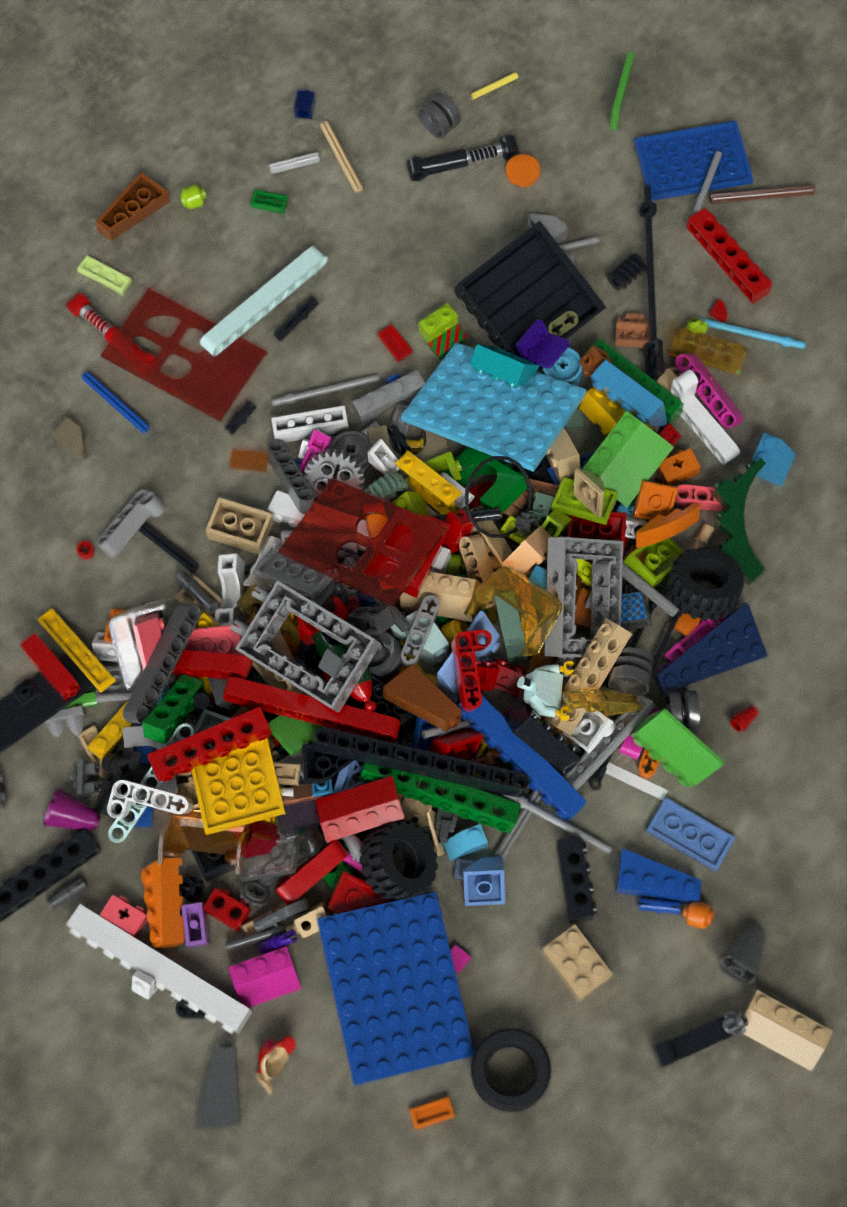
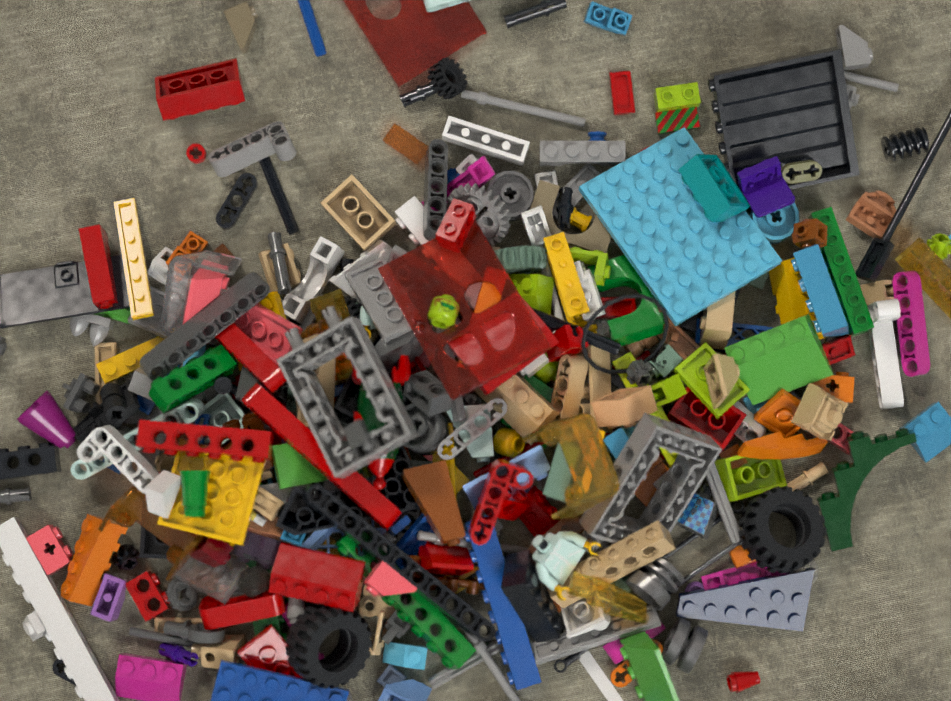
camera: 30 degrees right, 15 degrees up
(64, 501) = (199, 89): none -> red slope
(141, 576) = (224, 212): none -> black beam
(197, 805) = (162, 493): none -> white slope
(222, 787) = (194, 492): none -> green plant
(255, 395) = (447, 78): none -> black tyre
(322, 486) = (456, 225): none -> red brick
(348, 548) = (443, 311): none -> lime head
(353, 298) = (607, 19): none -> dark azure slope
(405, 737) = (400, 525): none -> blue tile
(419, 780) = (386, 581): none -> coral slope
(680, 482) = (819, 412): none -> tan brick

